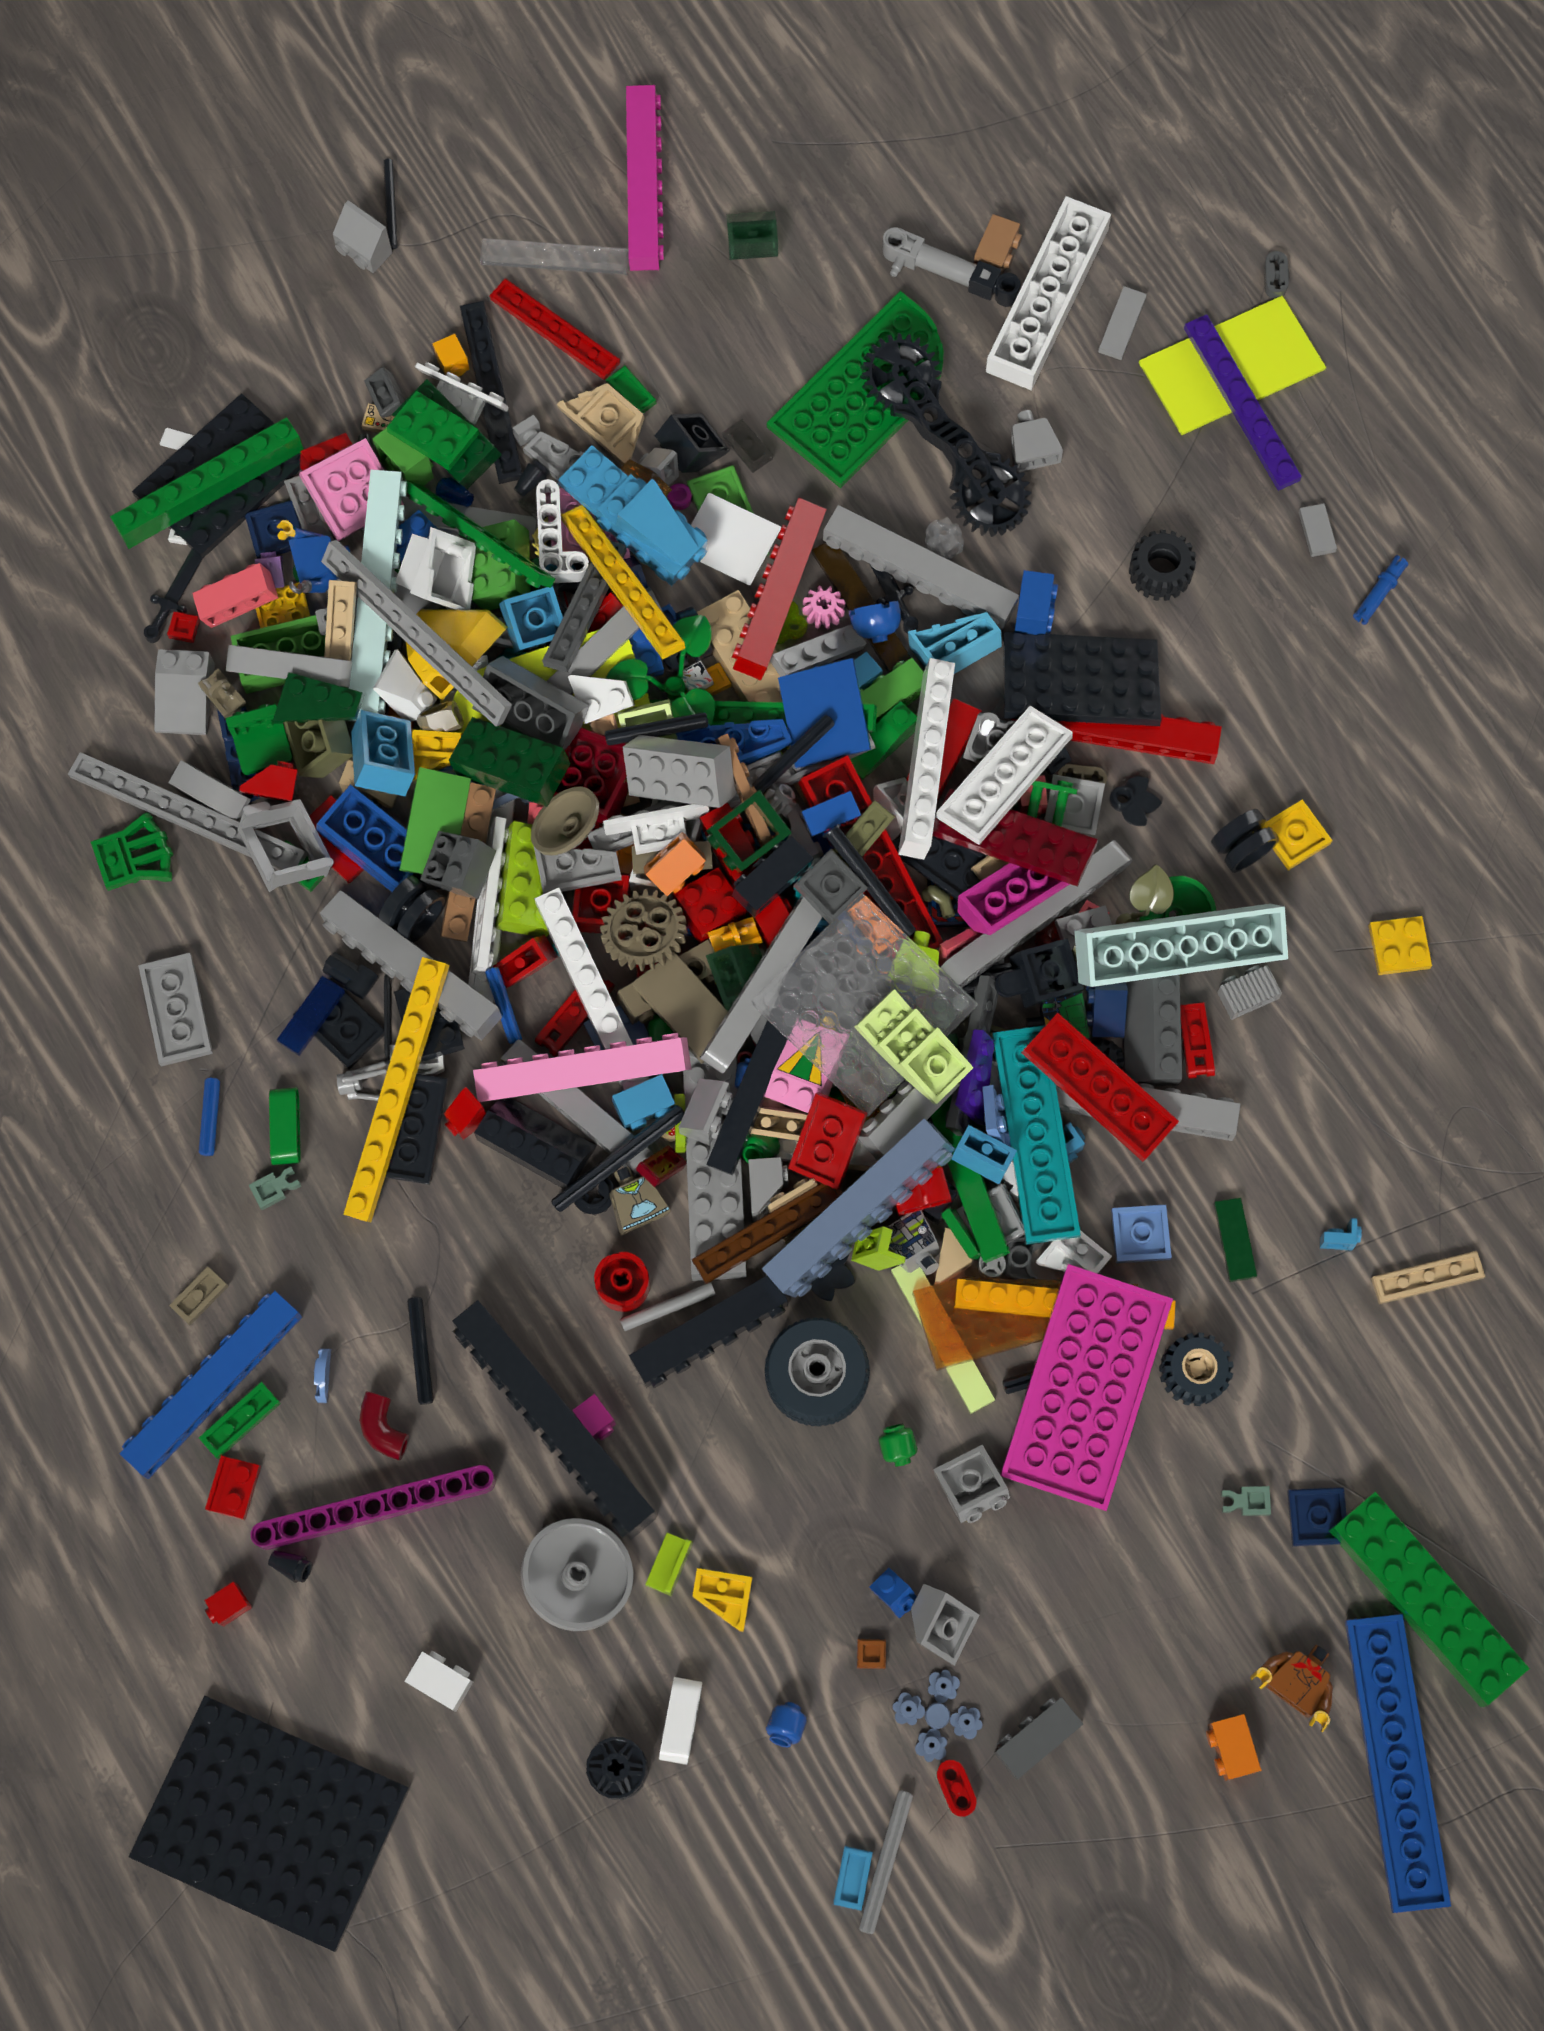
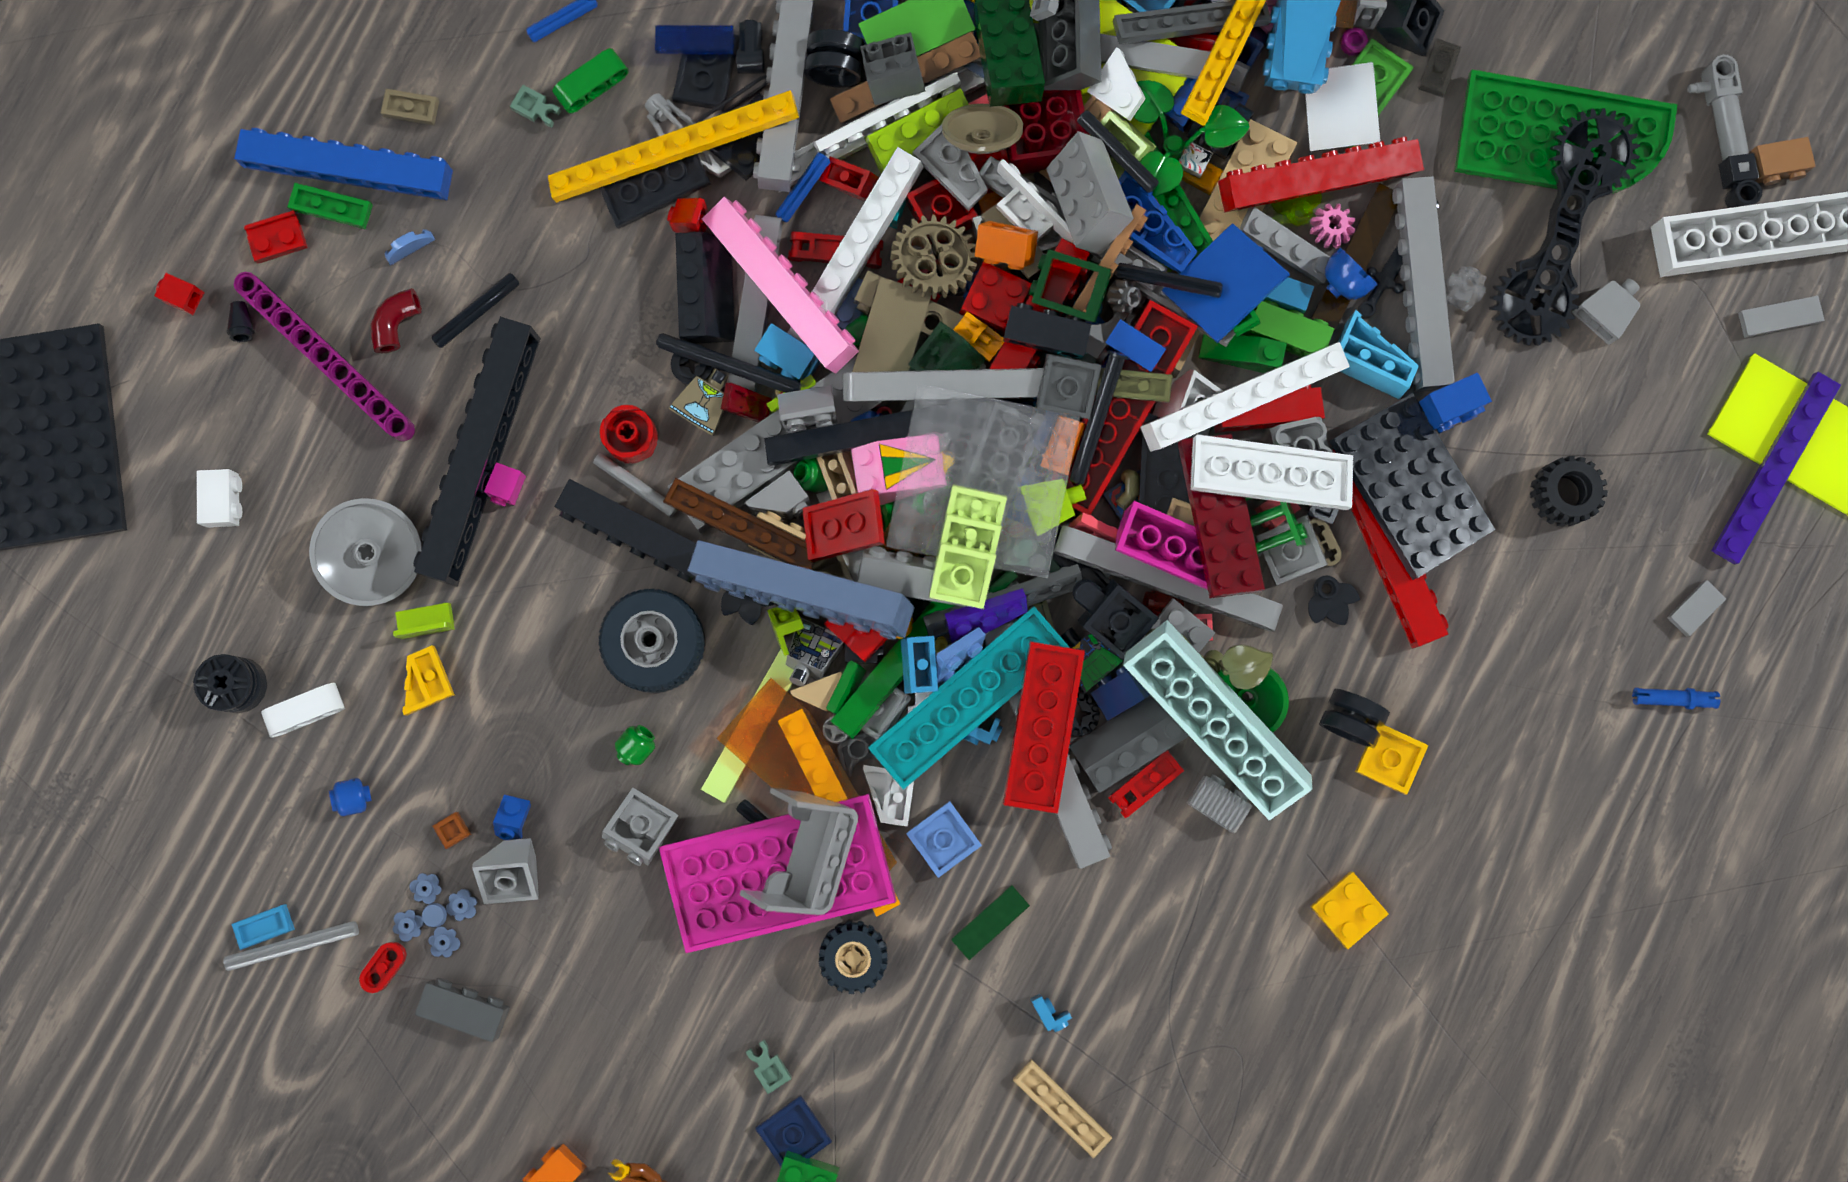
camera: 55 degrees right, 10 degrees up
(1093, 1339) = (816, 858): none -> light grey windscreen

